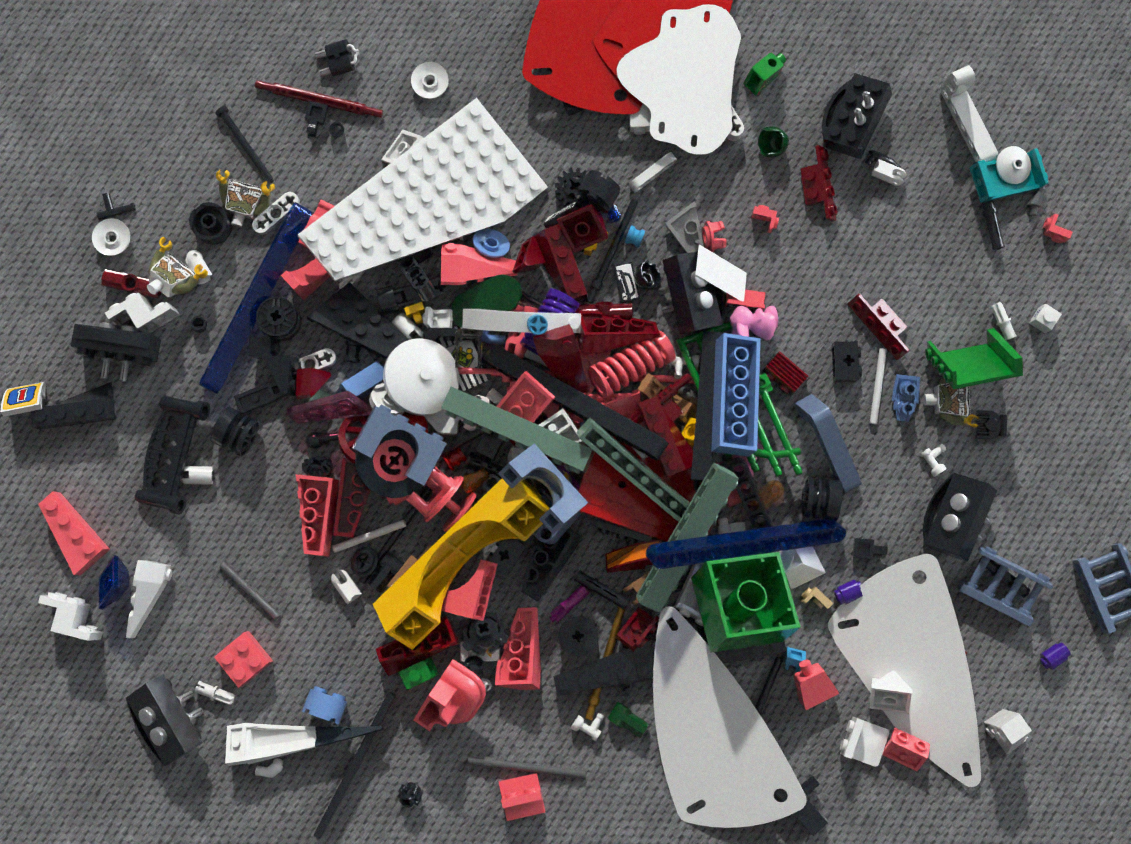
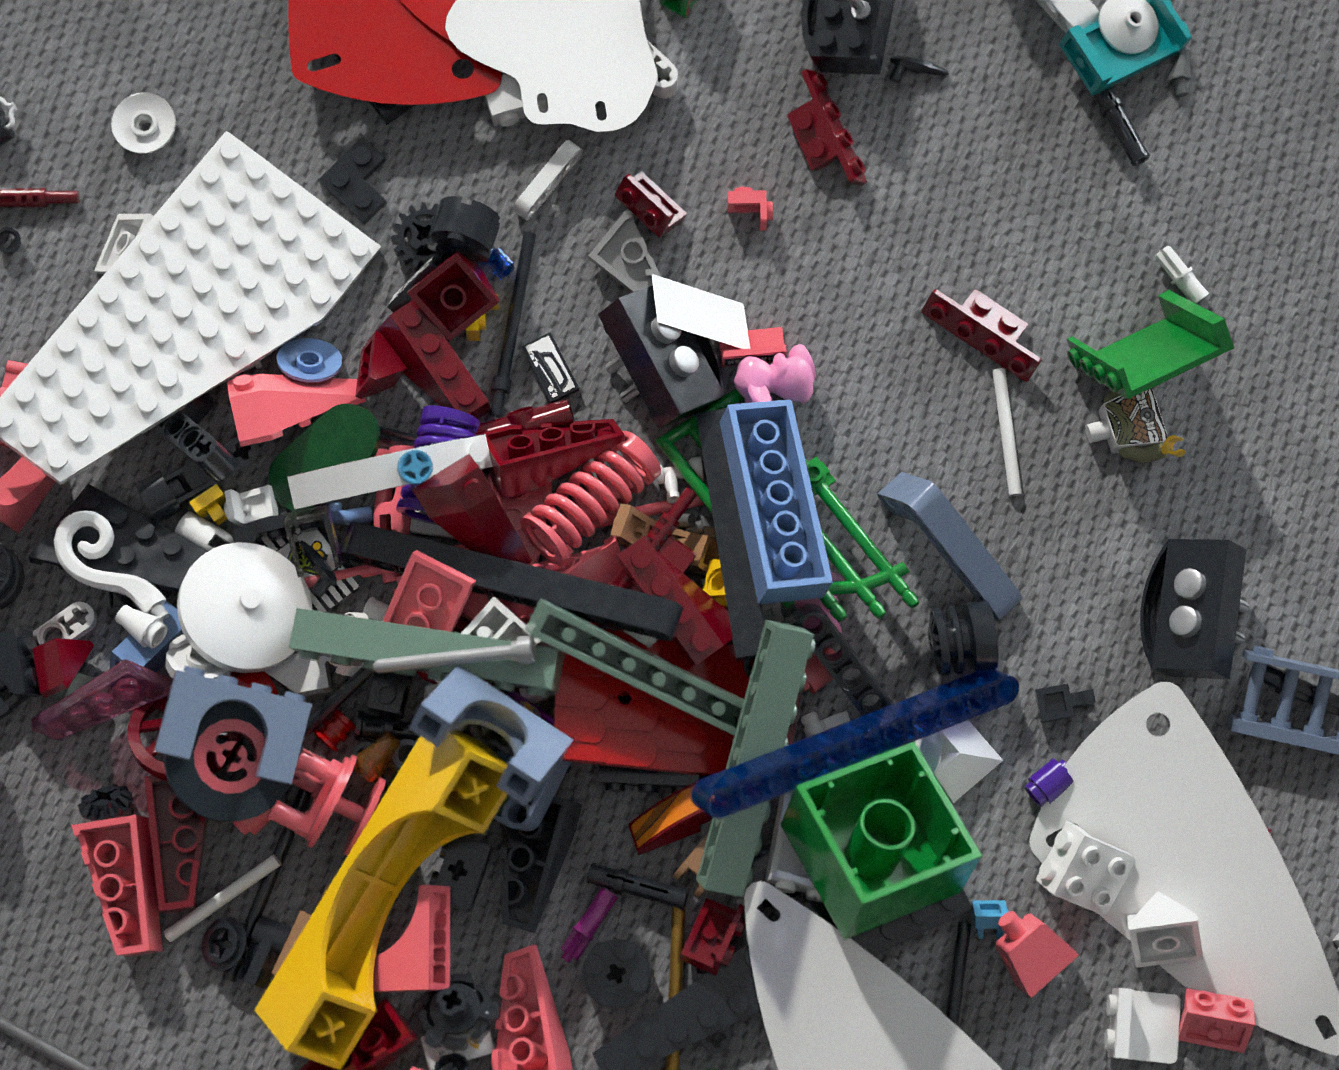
camera: 15 degrees left, 5 degrees down
(316, 439) = (96, 759): black piece -> none
(347, 590) = (208, 999): white piece -> none
(361, 373) = (143, 627): none -> white cone
(364, 351) = (139, 590): none -> white plant
(469, 365) = (321, 567): none -> black bar
(538, 143) = (348, 180): none -> black plate
(571, 445) = (521, 650): none -> light grey piece
(634, 236) = (544, 290): dark azure wheel -> none
(647, 276) = (580, 348): black hair -> none
(708, 201) = (649, 203): none -> dark red bracket
(708, 236) = (664, 259): coral piece -> none
(767, 495) = (872, 657): clear orange plate -> none
(772, 142) = (730, 82): dark green hair -> none
(785, 373) = (848, 449): dark red brick -> none
(820, 599) = (1005, 805): tan bracket -> none
(841, 371) = (940, 423): black brick -> none
(855, 646) = (1085, 869): none -> white bracket
(888, 173) = (932, 85): white piece -> none
(905, 396) = (1056, 436): medium blue connector -> none
(929, 457) = (1122, 525): white piece -> none
(993, 425) = (1212, 447): black piece -> none
(1045, 318) = (1247, 253): white brick -> none
(1057, 233) = (1228, 113): coral bracket -> none

